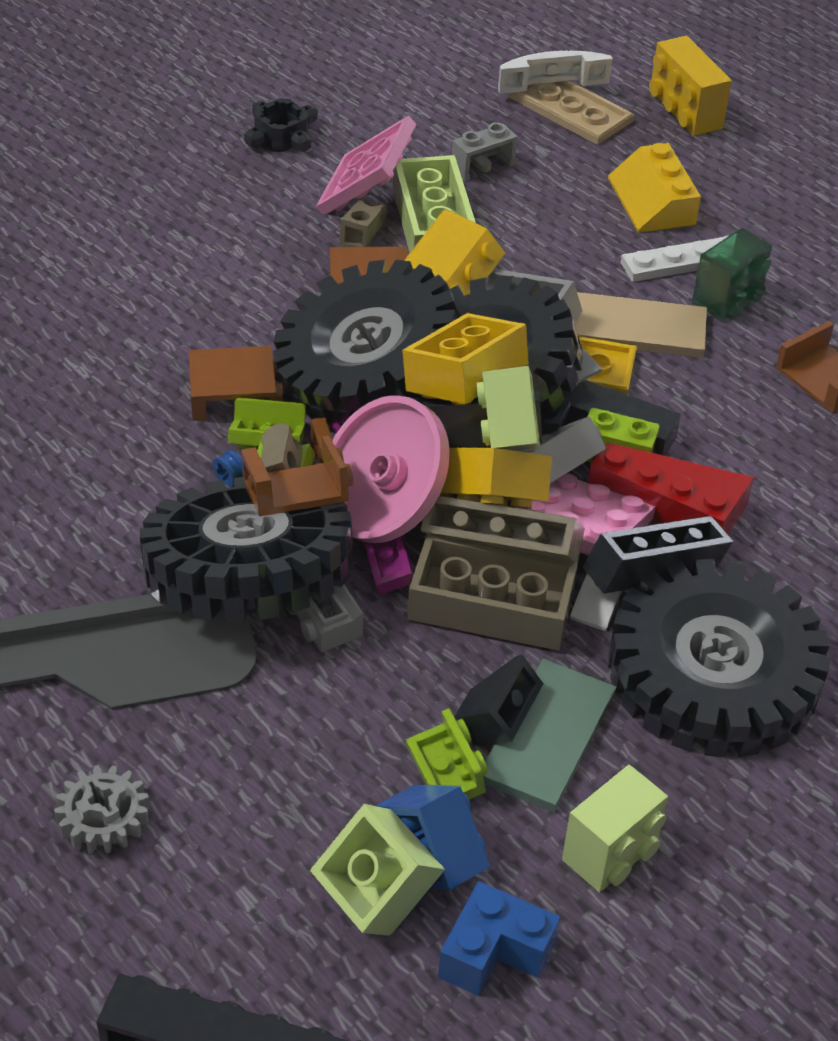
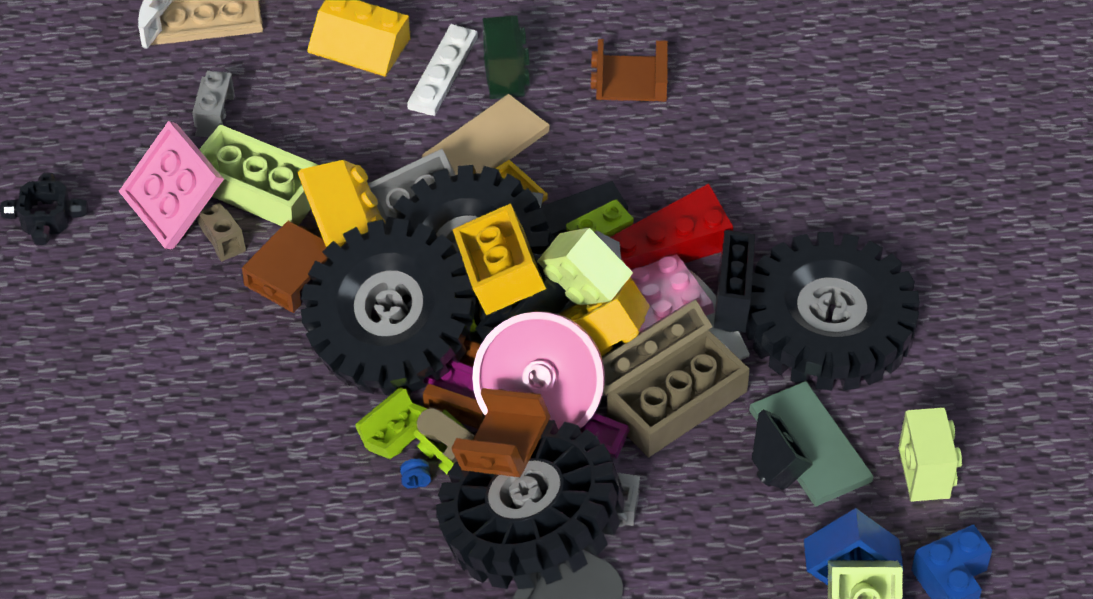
camera: 50 degrees left, 5 degrees up
(232, 375) = (323, 417): dark orange panel -> none
(446, 757) = (796, 507): lime bracket -> none

